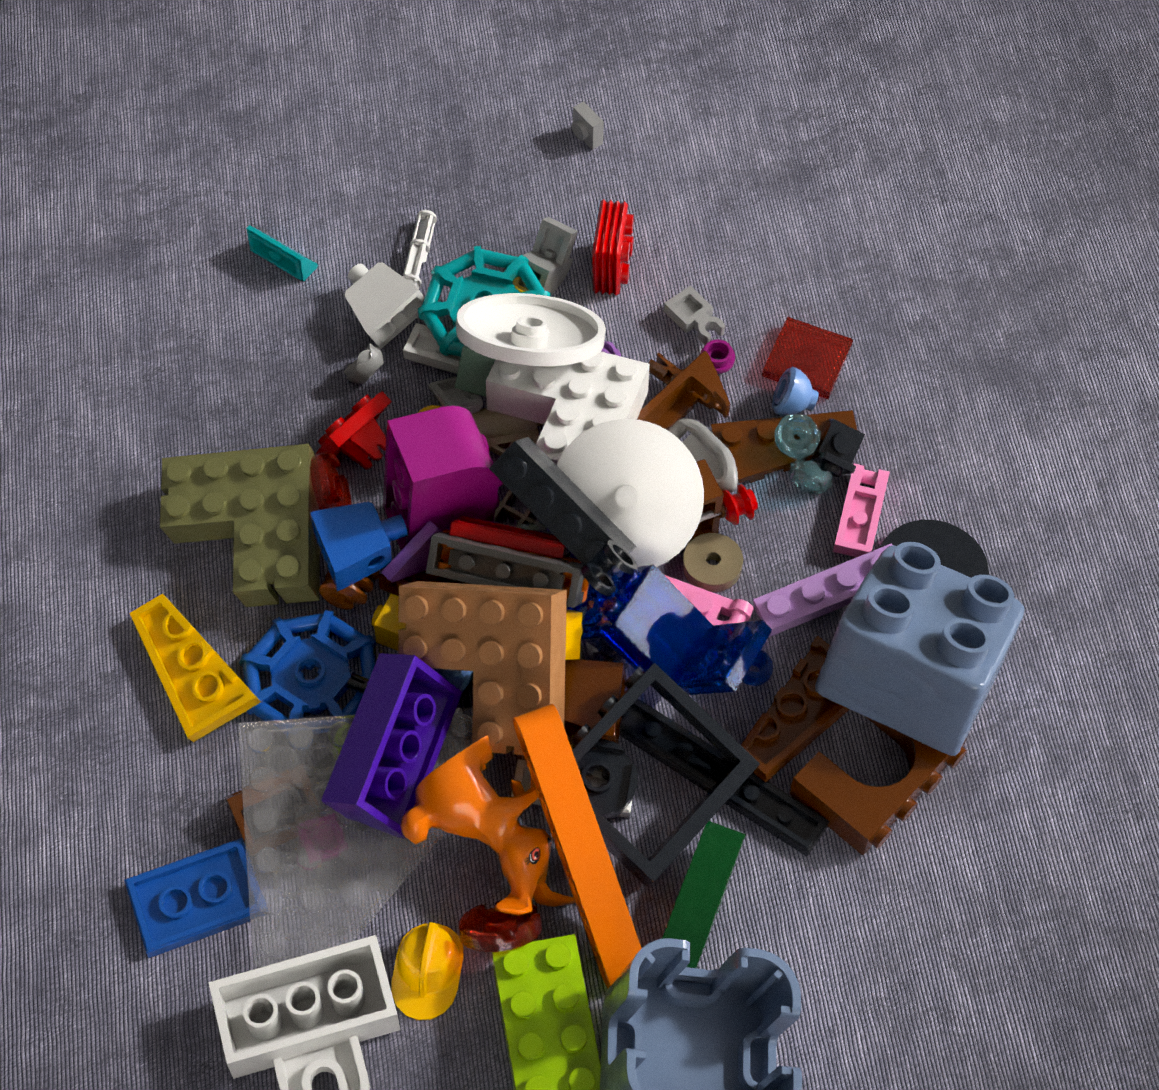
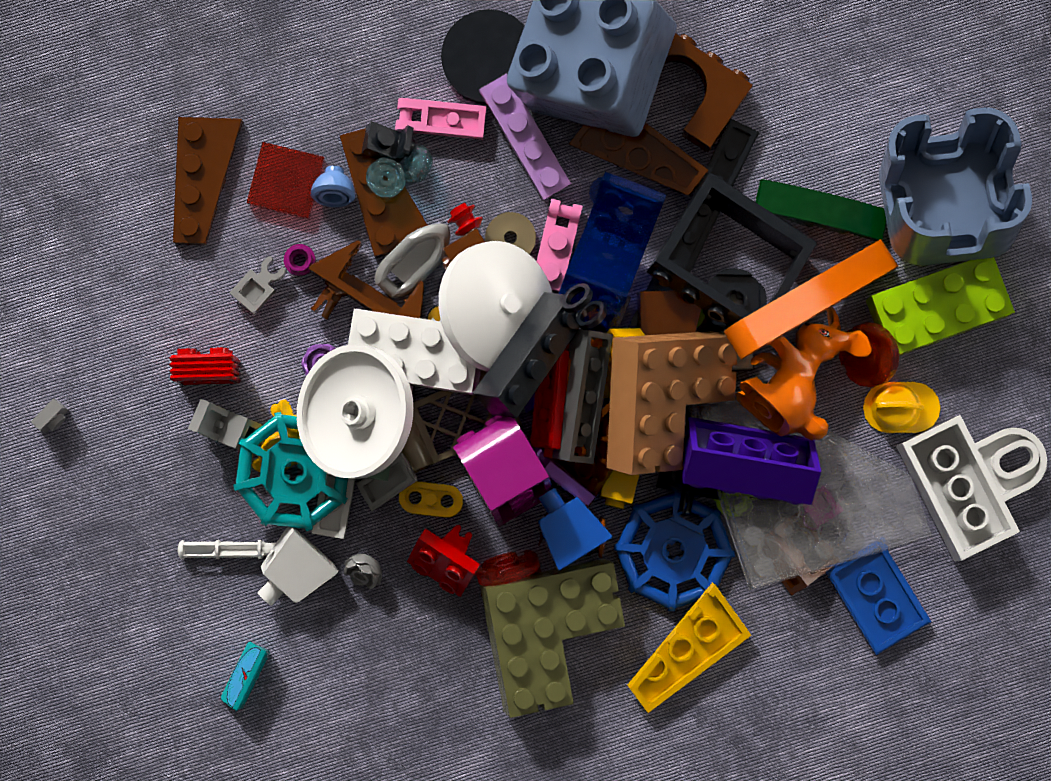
camera: 100 degrees left, 25 degrees up
(838, 286) = (201, 171): none -> reddish brown wing

